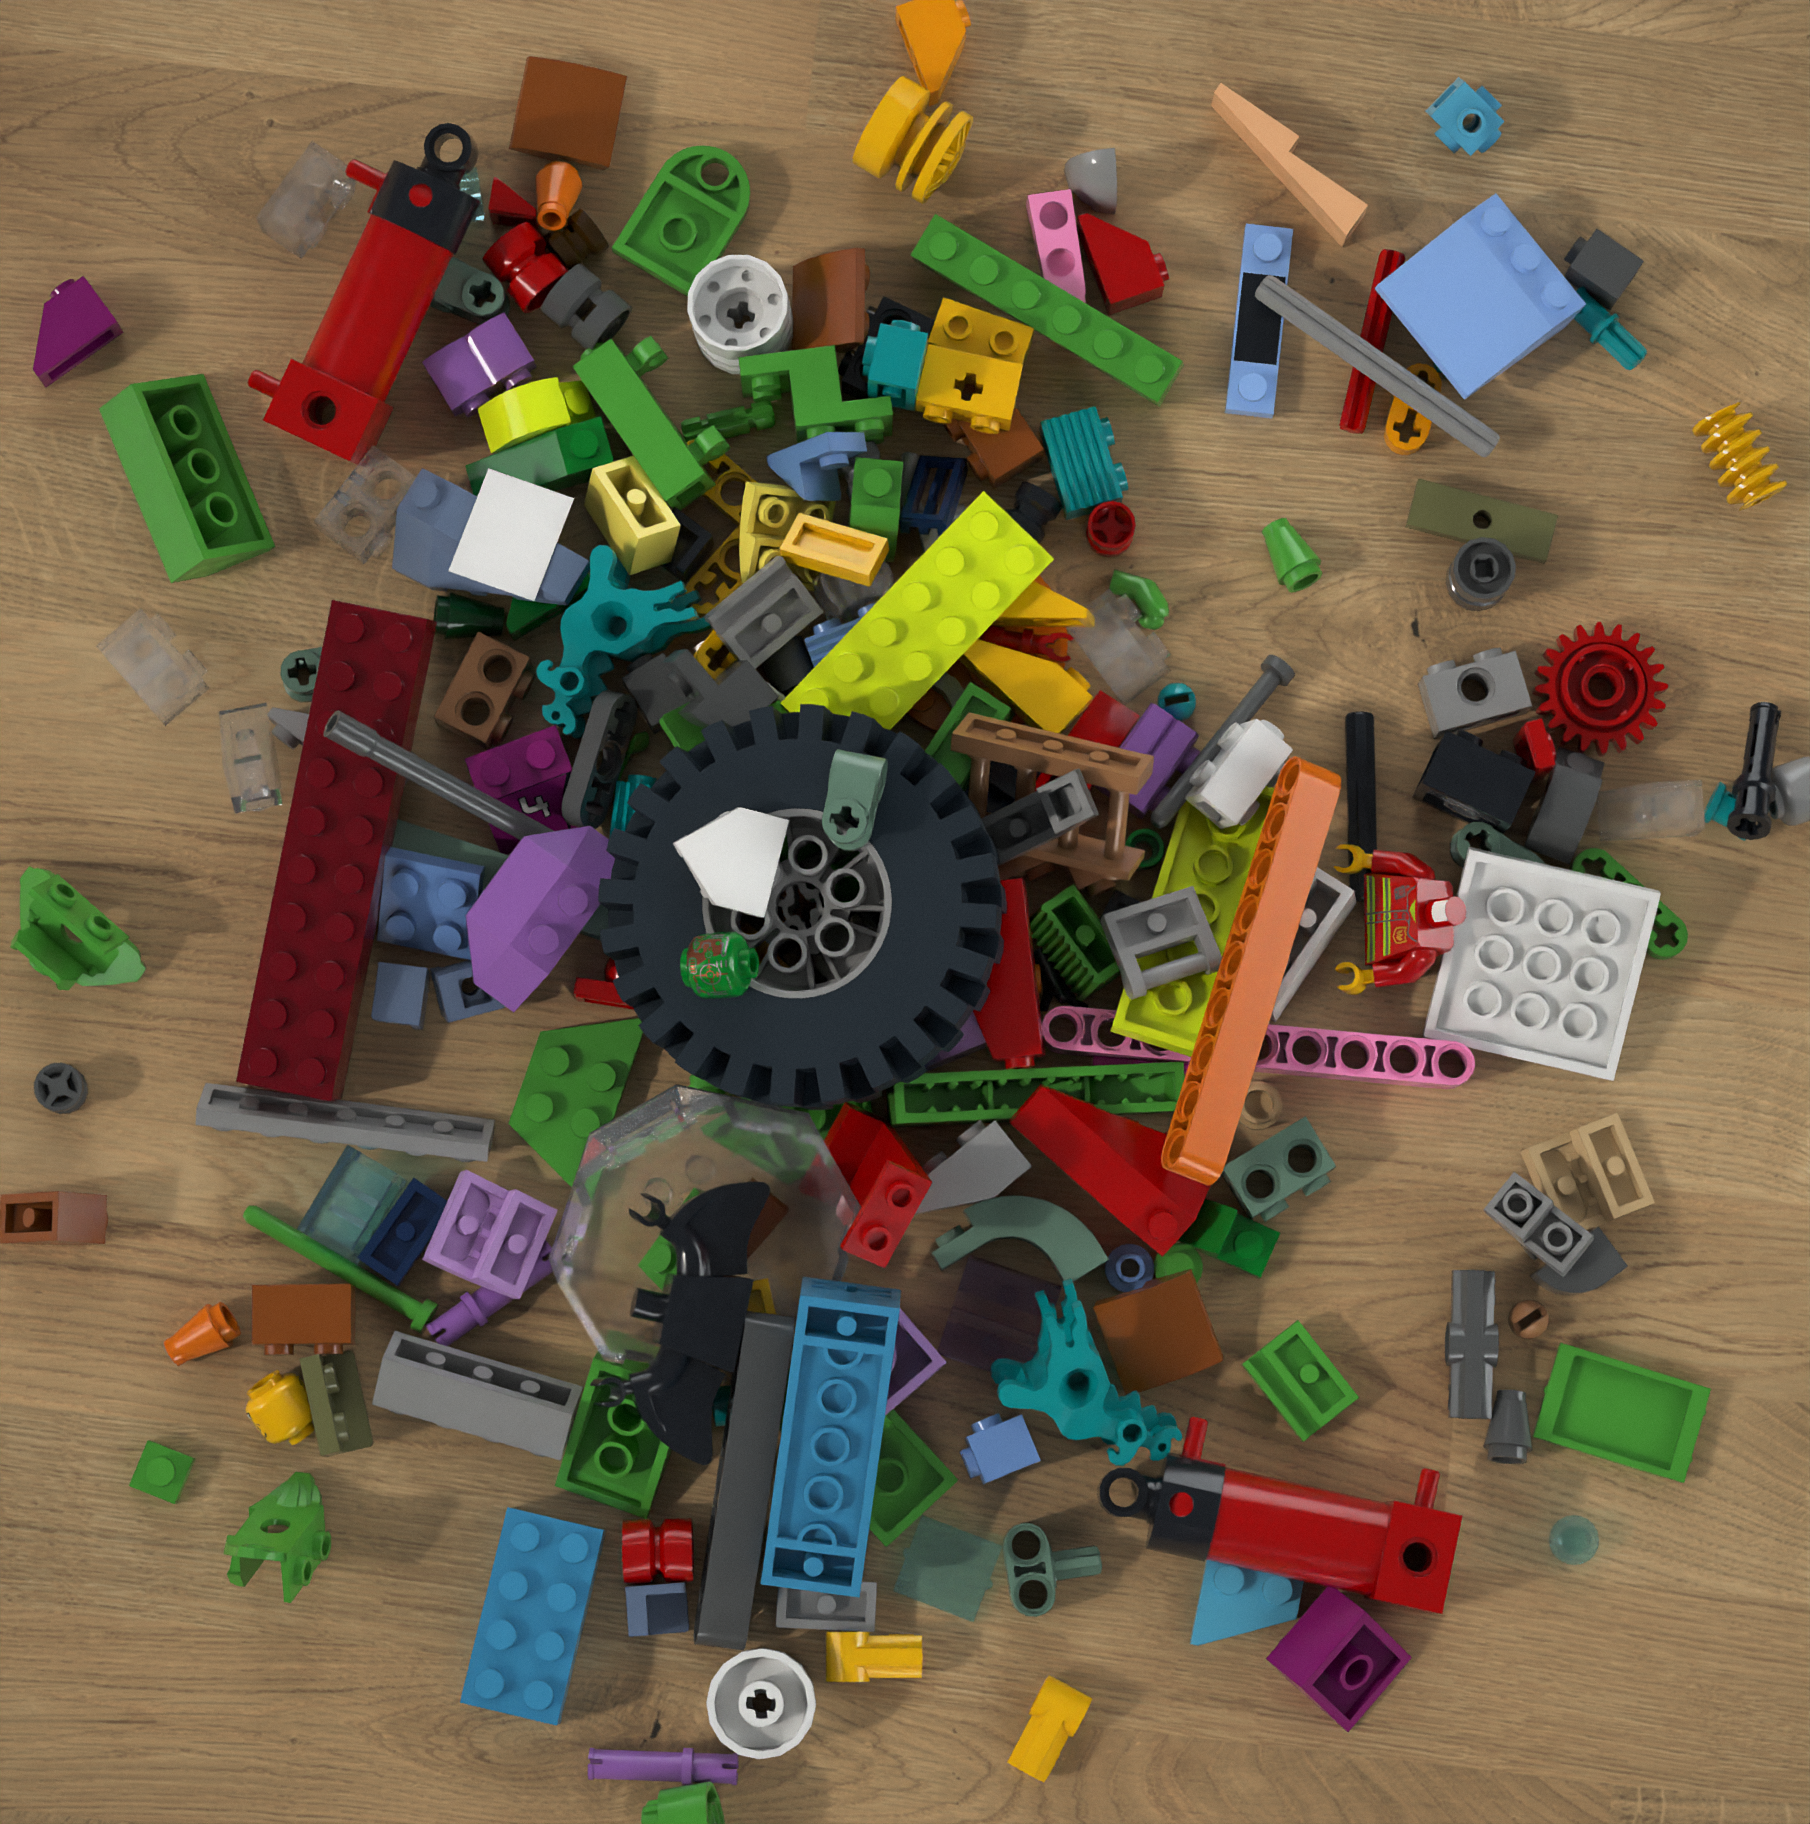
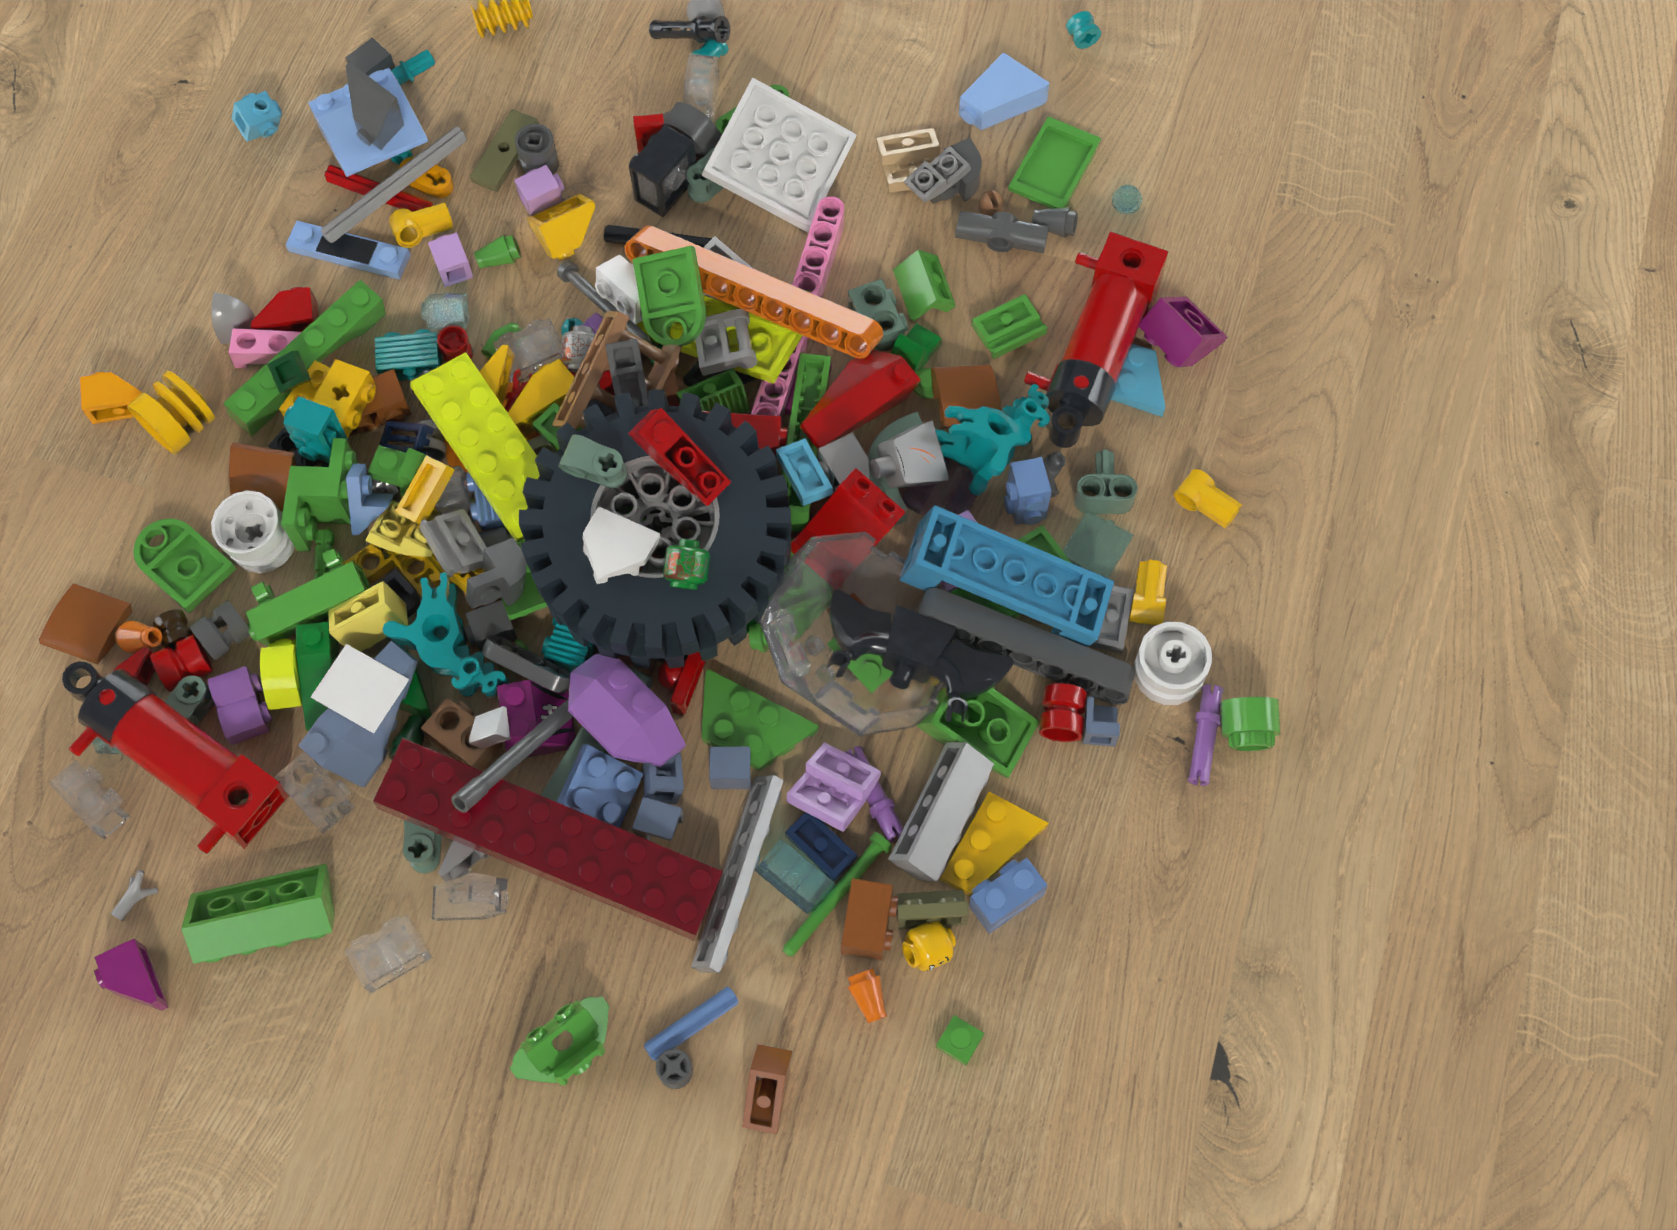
camera: 75 degrees left, 15 degrees down
(127, 1099) = (691, 1023): none -> medium blue axle
(185, 295) = (132, 896): none -> light grey bar
(299, 1548) = (996, 951): bright green piece -> none
(370, 1507) = (1007, 895): none -> medium blue brick
(451, 1473) = (991, 840): none -> yellow wing
(486, 730) = (490, 728): none -> white slope
(497, 1081) = (730, 768): none -> sand blue panel
(533, 1616) = (1096, 799): dark azure piece -> none
(885, 919) = (679, 455): none -> red slope
(956, 1105) = (804, 472): none -> medium azure plate
(995, 299) = (289, 371): none -> dark green plate
(1014, 1261) = (910, 458): none -> light grey torso
(1056, 1476) = (1053, 465): none -> dark grey arm
(1113, 1267) = (924, 401): medium blue plate -> none
(1115, 722) = (575, 346): none -> light grey head
(1165, 502) = (445, 310): none -> clear light blue brick
(1214, 845) = (670, 294): none -> bright green plate
(1259, 485) = (450, 259): none -> lavender brick
(1274, 144) = (242, 221): light nougat slope -> none
(1311, 411) = (419, 224): none -> yellow piece
(1352, 1235) = (923, 284): none -> bright green panel
(1357, 644) = (563, 226): none -> yellow slope
(1405, 918) = (737, 219): red torso -> none
(1415, 594) = (539, 189): none -> lavender brick
(1450, 710) = (610, 154): light grey brick -> none
(1473, 303) = (373, 109): none -> dark grey slope
(1617, 664) = (616, 100): red gear -> none
(1738, 1305) = (1002, 93): none -> light blue slope

